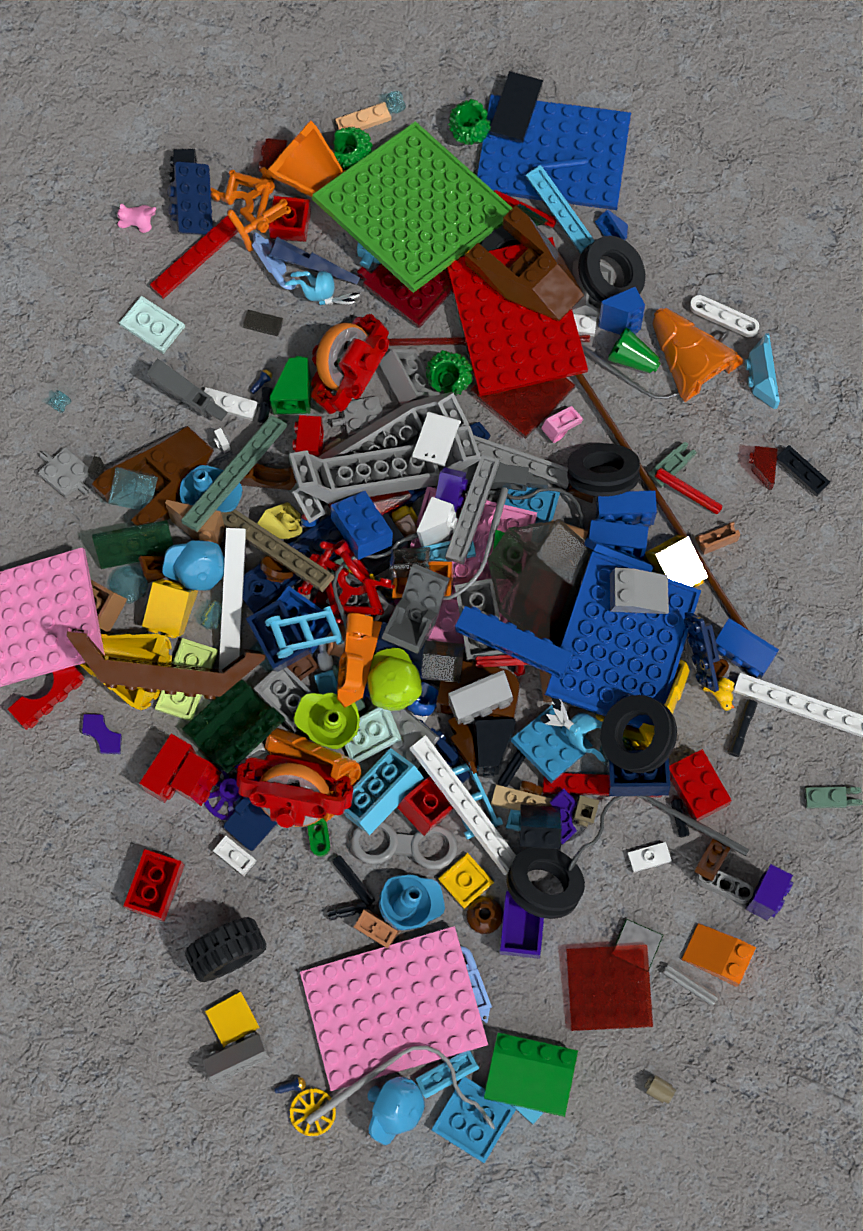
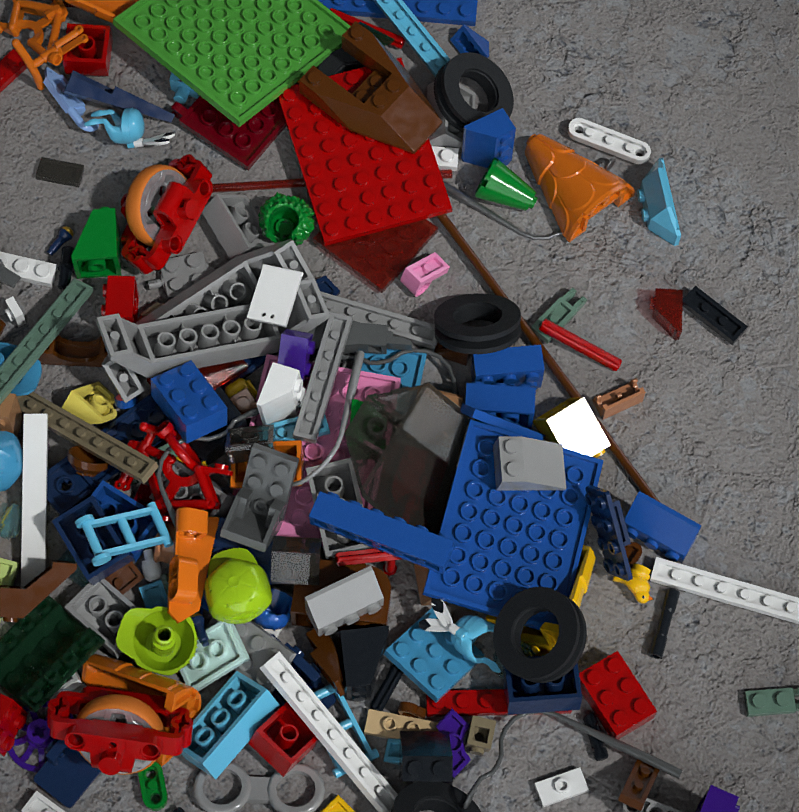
camera: 10 degrees left, 5 degrees down
(361, 705) = (198, 621): none -> dark blue piece

